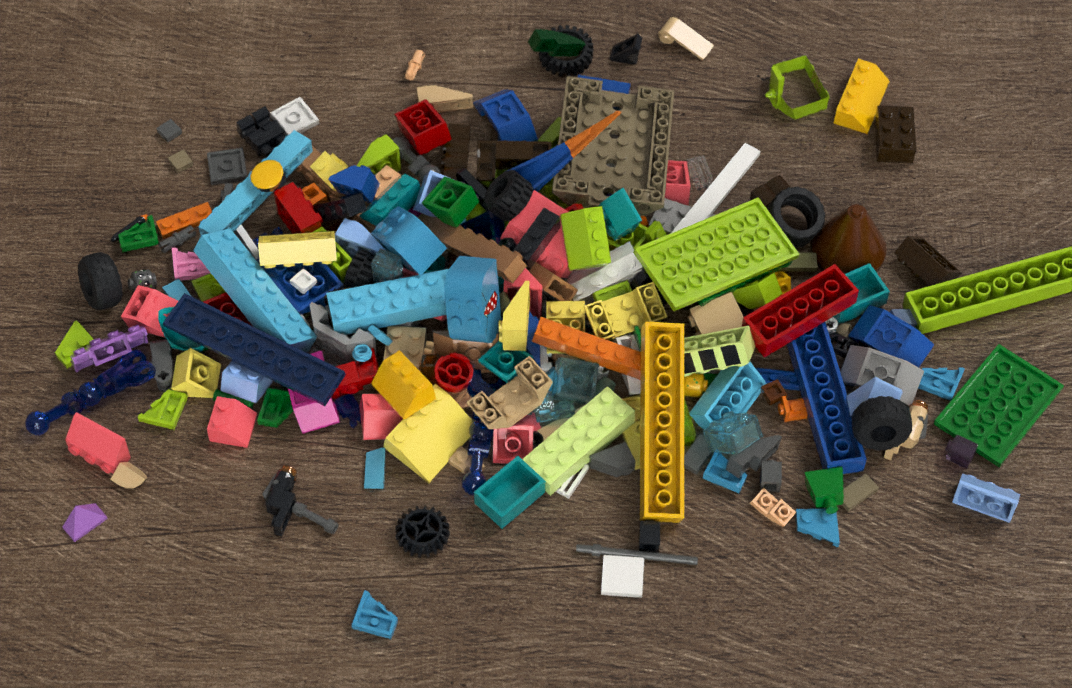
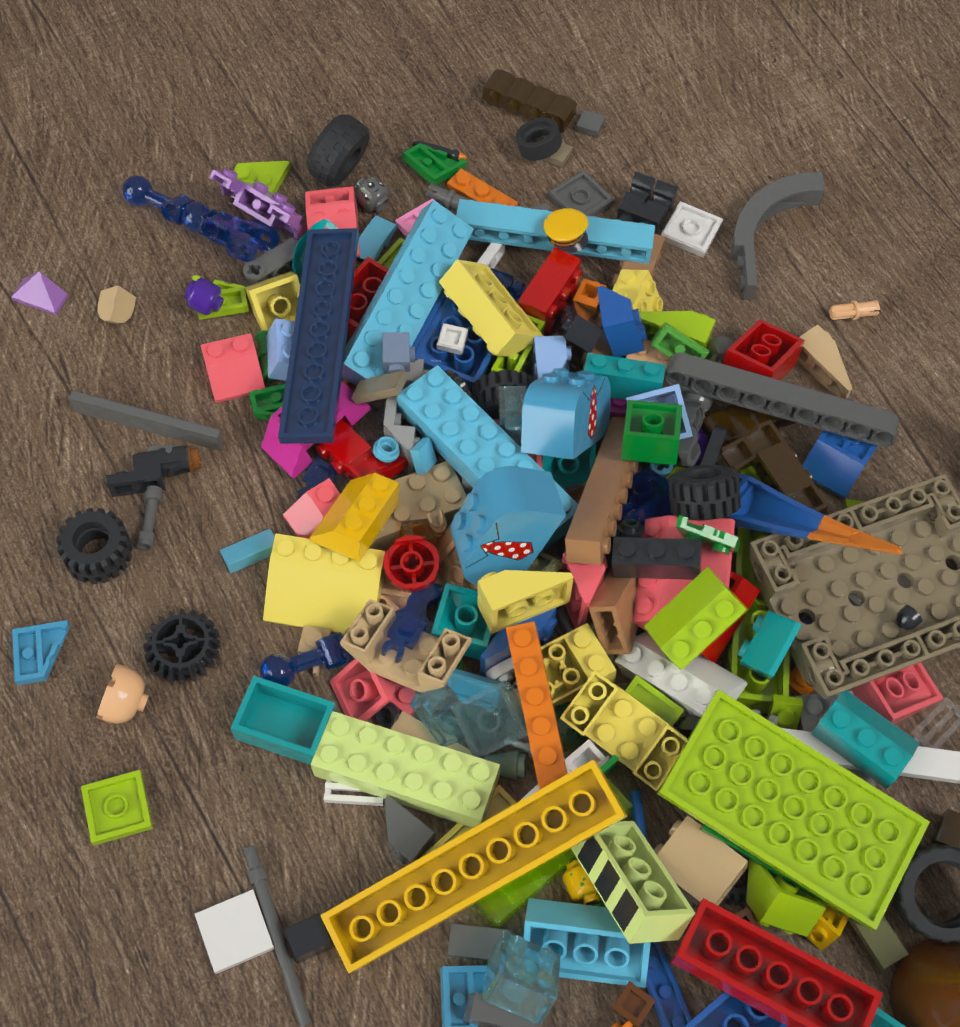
camera: 60 degrees right, 5 degrees up
(96, 444) = (133, 254): coral slope -> none
(124, 156) = (527, 100): none -> dark brown brick
(156, 158) = (541, 149): none -> black tyre
(167, 412) = (203, 296): none -> dark purple head
(239, 490) = (147, 420): none -> dark grey tile
(303, 310) = (397, 352): none -> sand blue brick
(318, 333) = (379, 387): none -> dark tan tile
(320, 539) = (86, 528): none -> black tyre
(321, 92) = (780, 195): none -> dark grey arch
(391, 163) = (672, 341): none -> bright green brick
(437, 576) = (122, 696): none -> light nougat cylinder
(463, 130) = (783, 399): none -> dark grey beam
(501, 392) = (403, 633): none -> clear blue plate
(510, 609) = (116, 807): none -> lime plate
(545, 201) = (721, 541): none -> green wing
(640, 143) = (908, 618): none -> black hinge
(697, 202) = (866, 739): none -> teal slope

